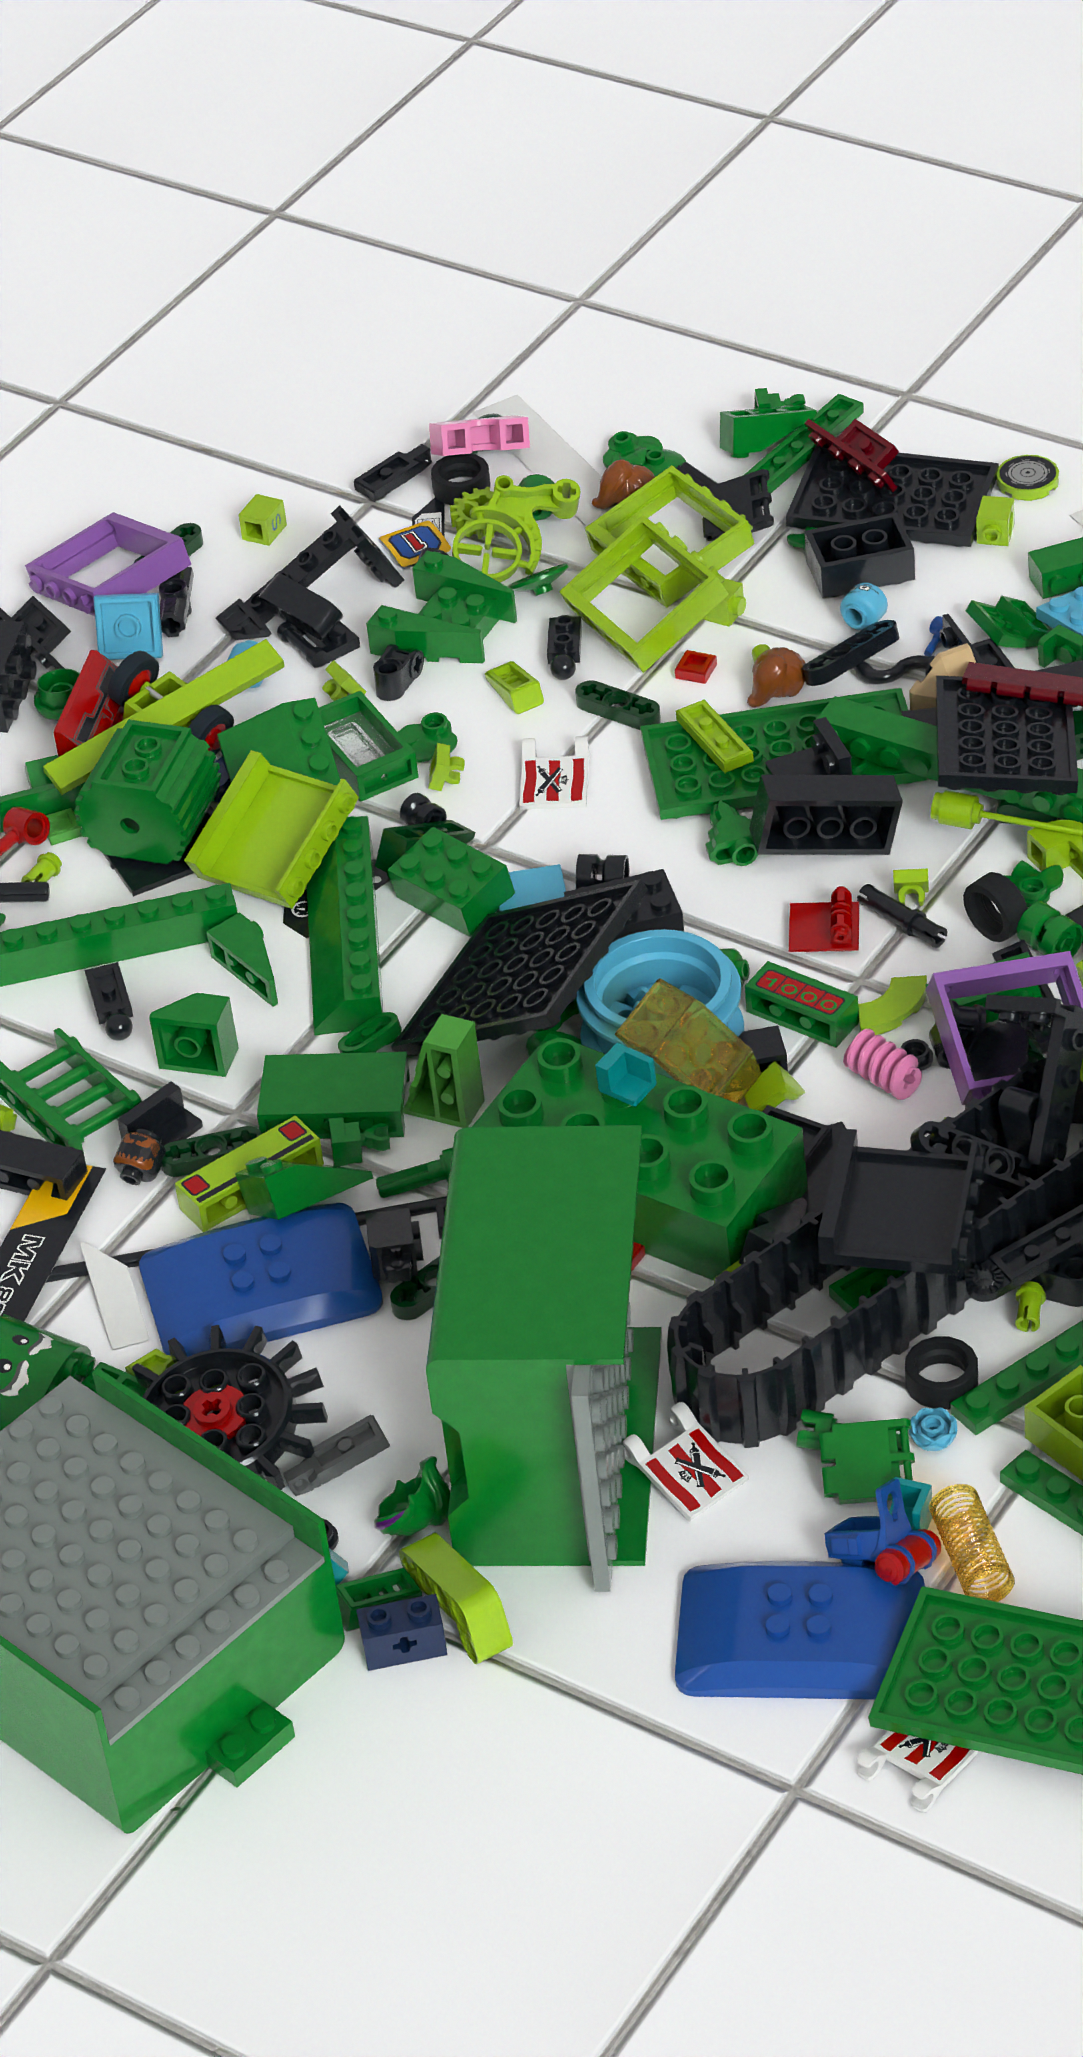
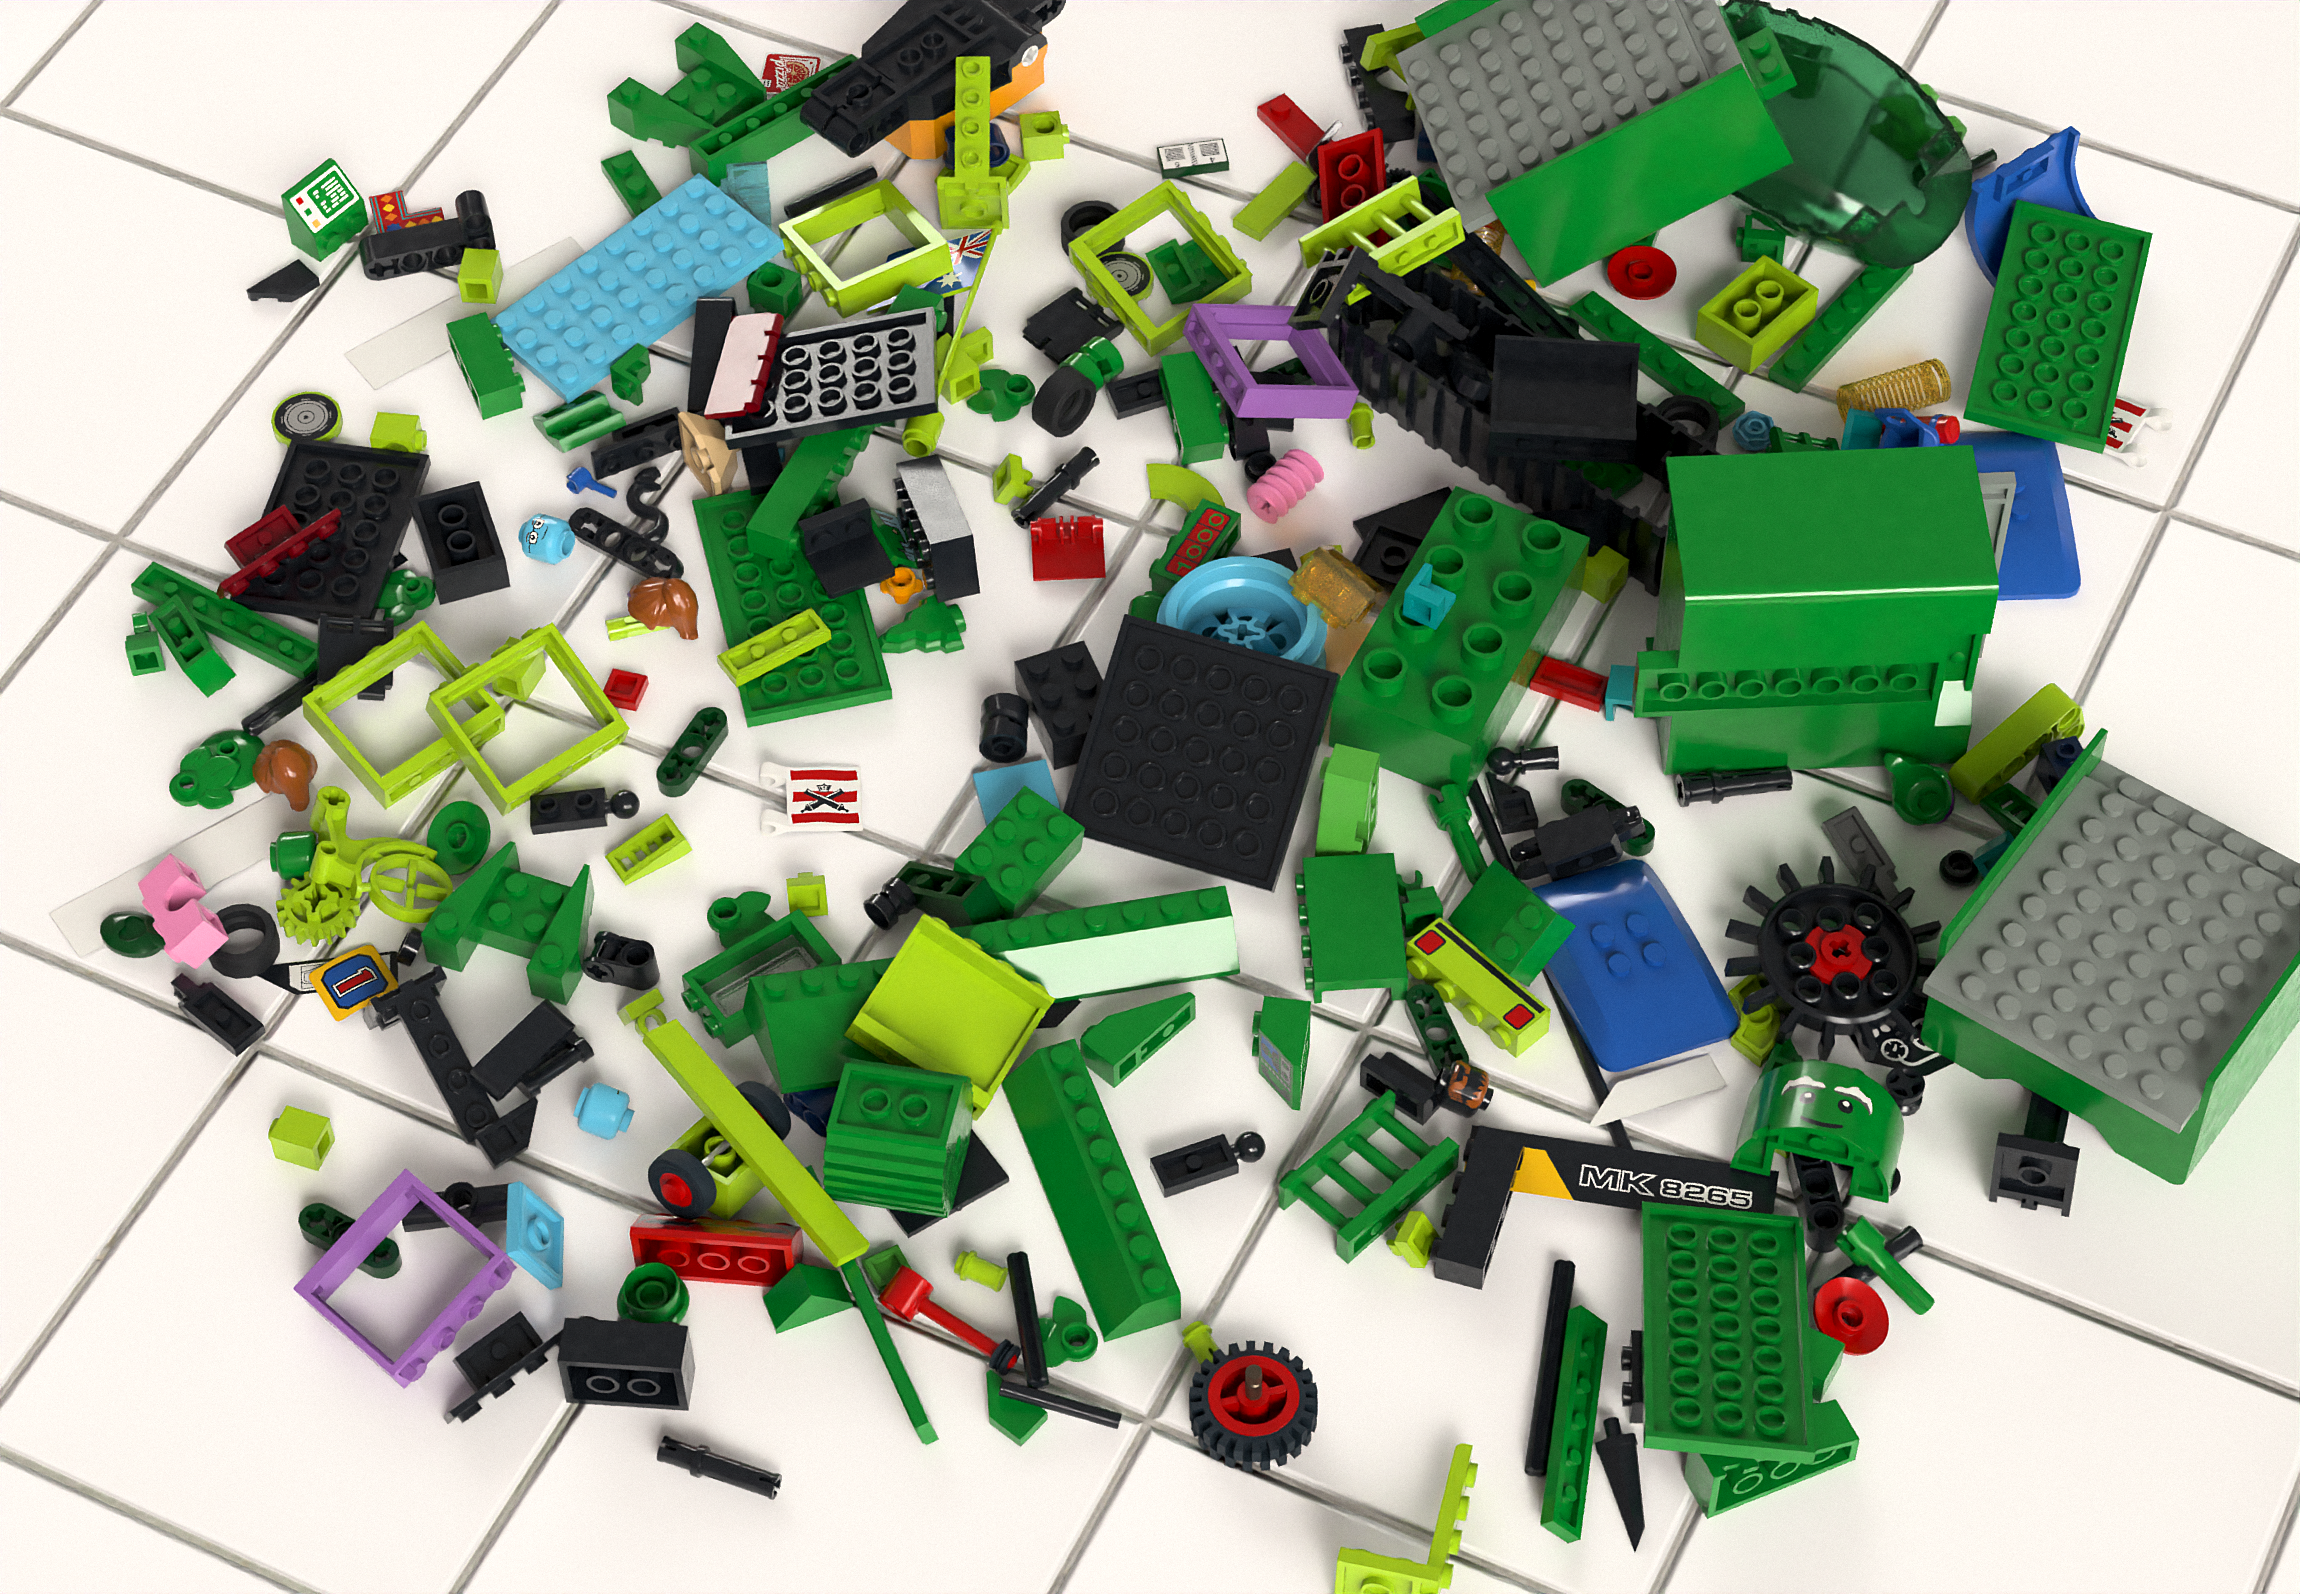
camera: 100 degrees left, 10 degrees up
(372, 1034) = (1262, 910): green plate -> none

